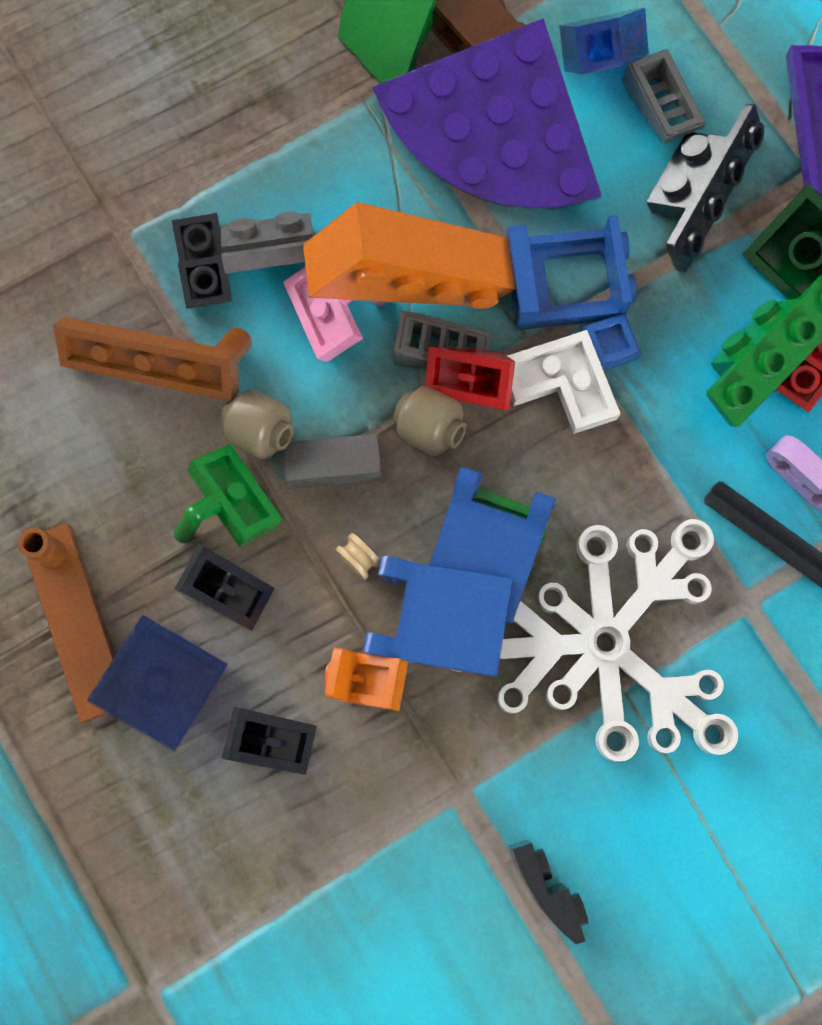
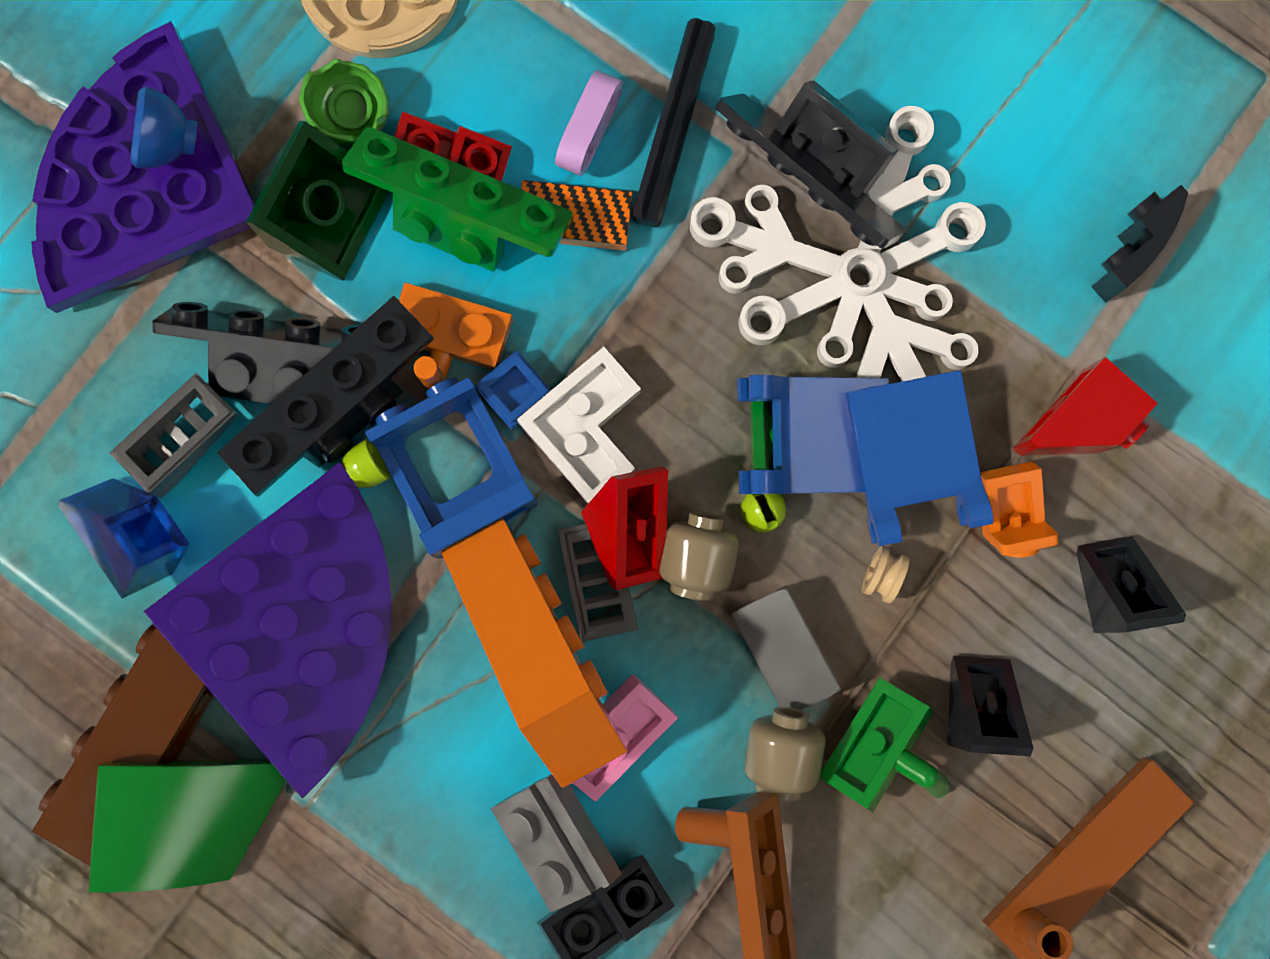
camera: 115 degrees left, 5 degrees up
(157, 683) = (1118, 735): clear blue plate -> none
(416, 777) = (1091, 415): none -> red slope
(442, 497) = (752, 514): none -> lime hinge
(592, 215) = (365, 465): none -> lime hinge
(650, 202) = (330, 401): none -> black bracket
(675, 313) = (459, 332): none -> orange plate
(716, 646) = (826, 151): none -> black bracket
(732, 449) = (598, 215): none -> tile

